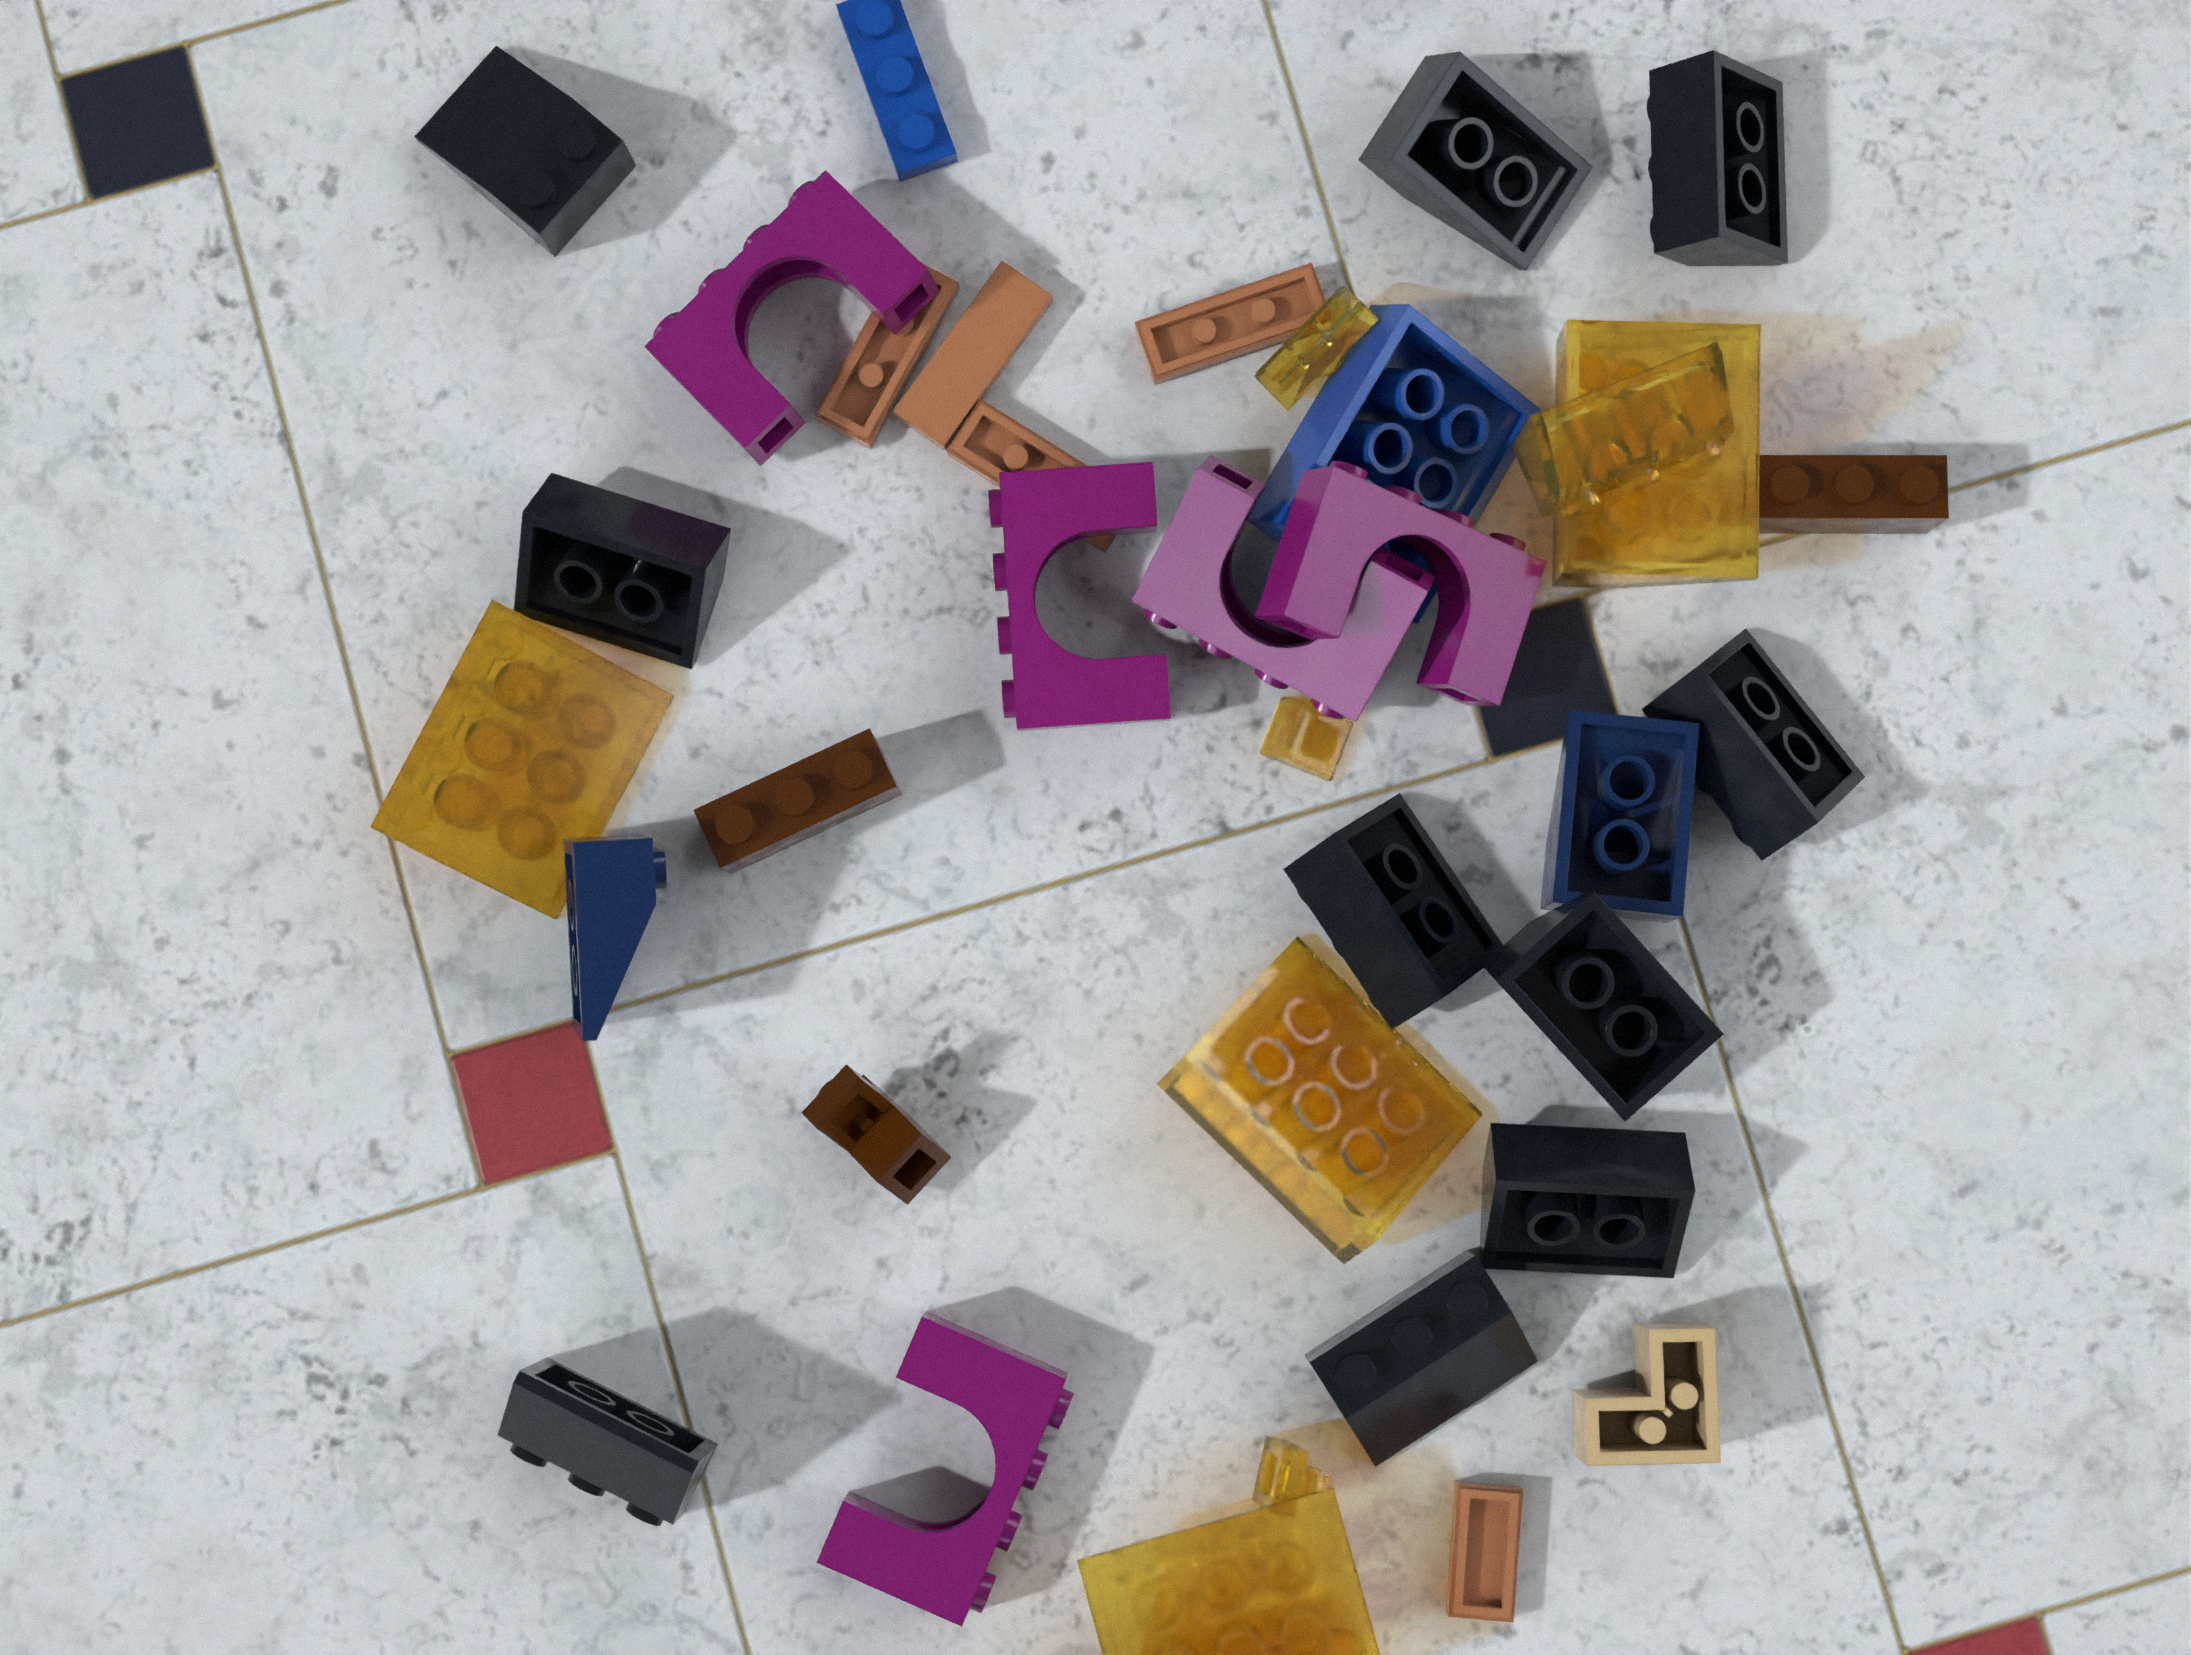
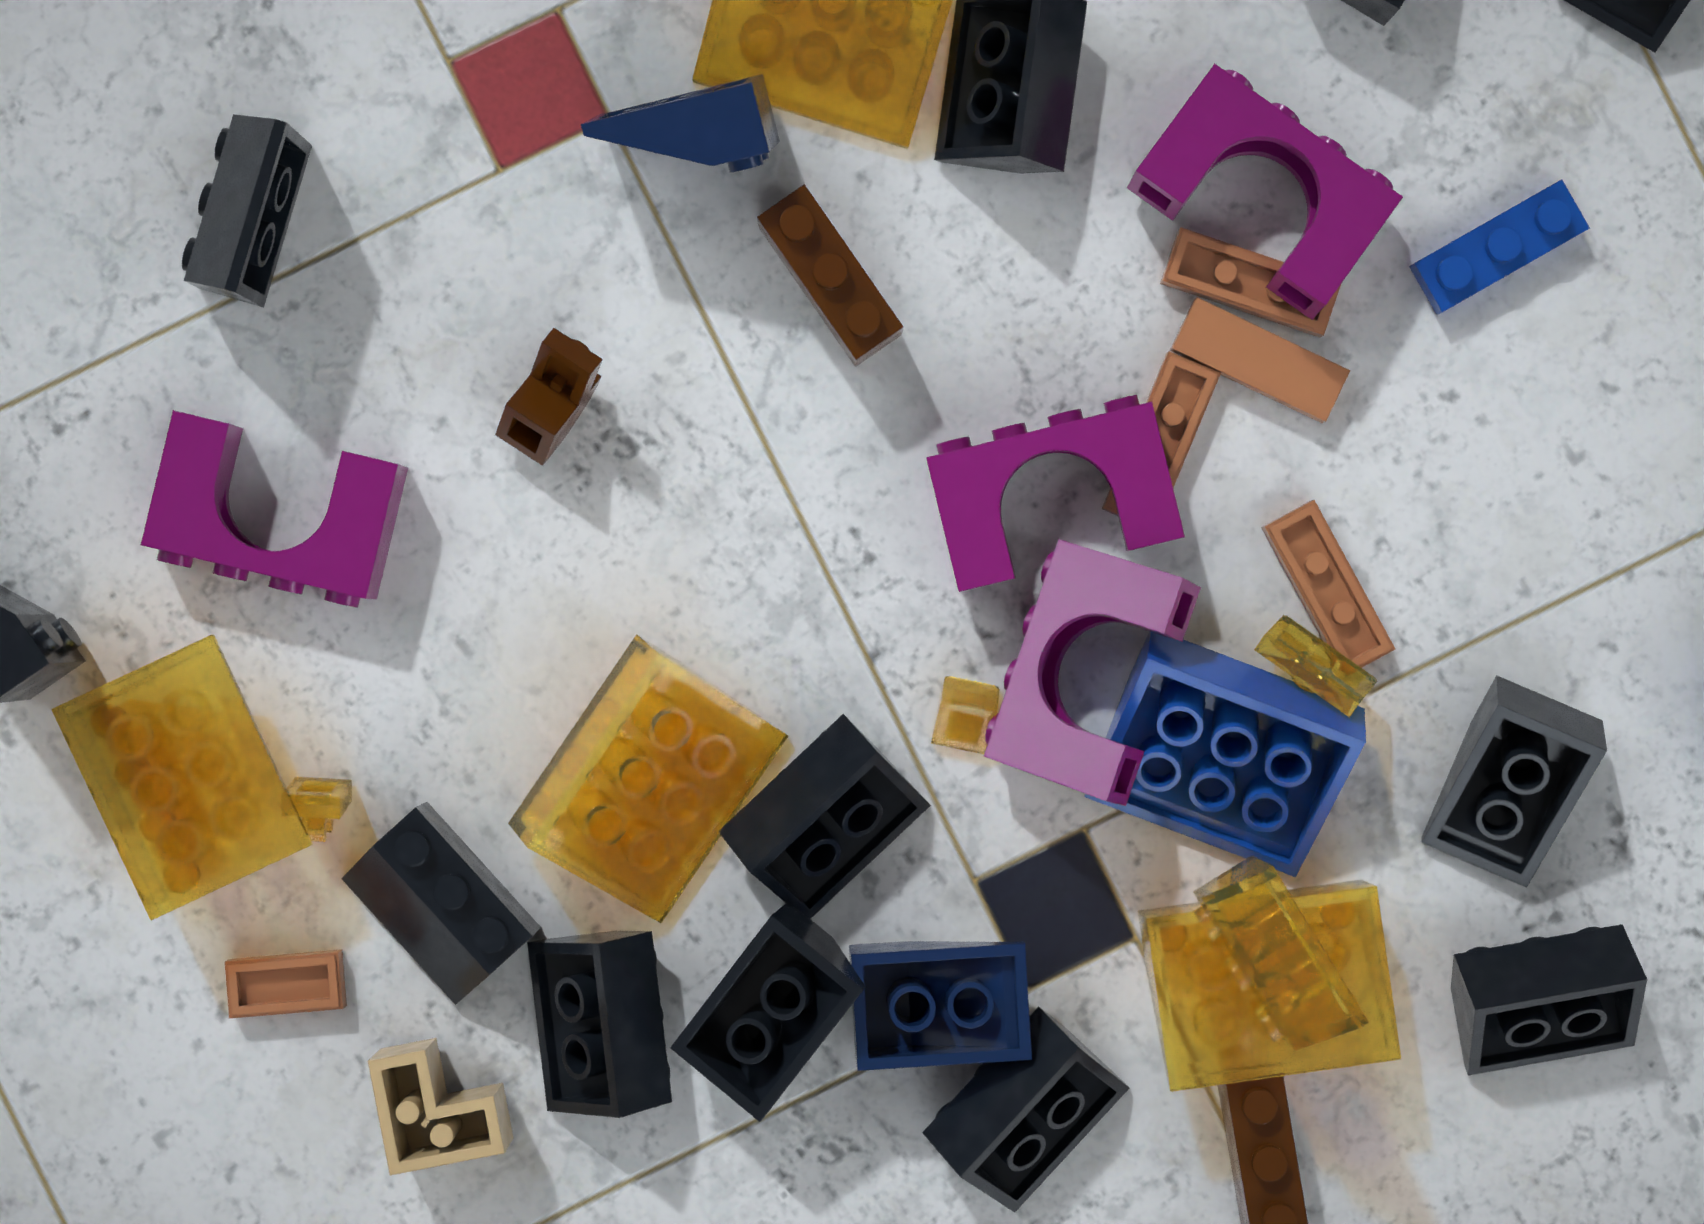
camera: 75 degrees right, 5 degrees up
(1480, 578) = (1127, 847): magenta arch -> none

